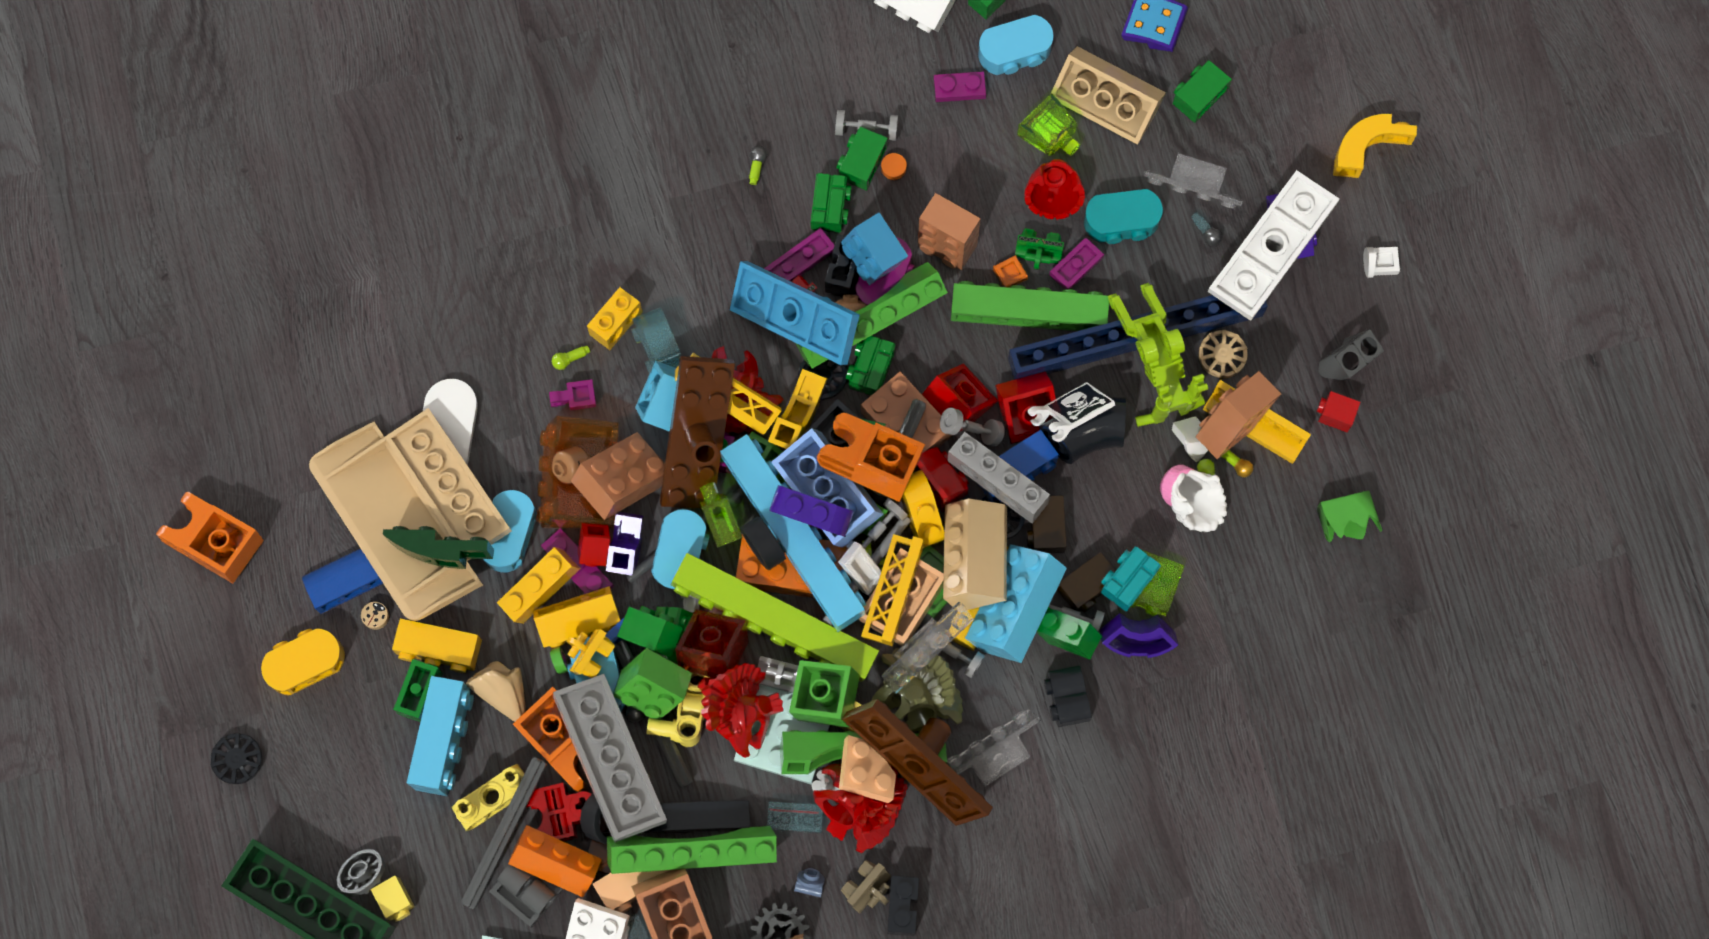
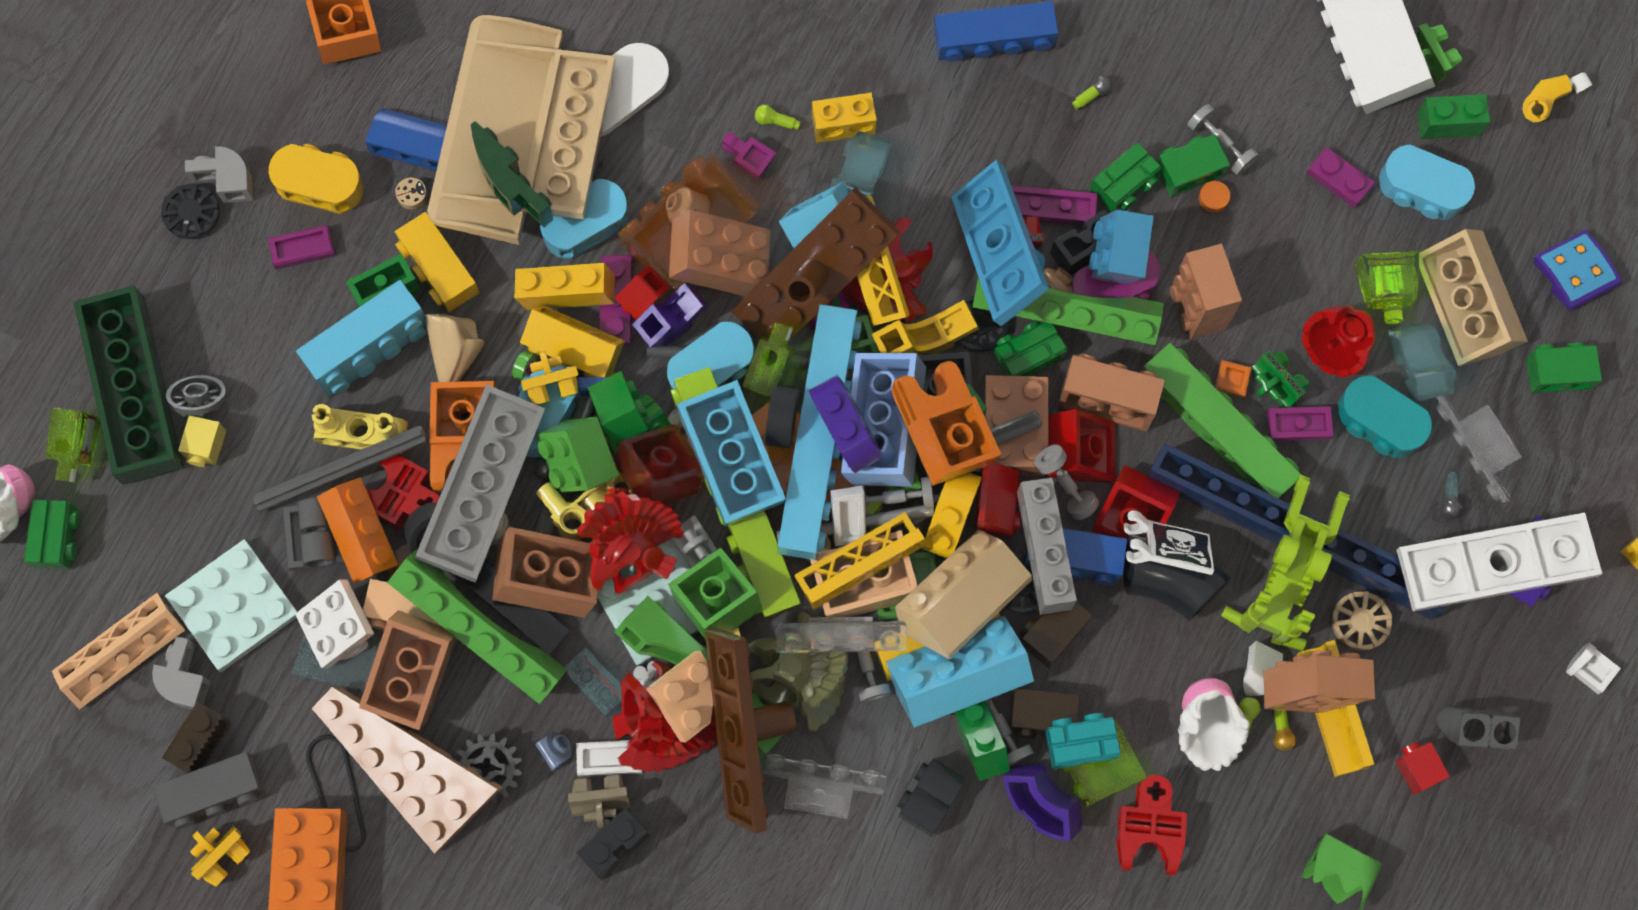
camera: 40 degrees right, 0 degrees up
(238, 708) = (229, 171): none -> light grey brick
(334, 715) = (301, 247): none -> magenta tile
(659, 178) = (995, 31): none -> blue brick
(702, 776) = (544, 573): none -> nougat brick
(754, 594) = (731, 453): none -> medium azure brick
(844, 860) = (601, 759): none -> white tile
(946, 346) = (1111, 392): none -> nougat brick
(1108, 156) = (1424, 362): none -> clear light blue brick
(1206, 583) = (1147, 811): none -> red piece

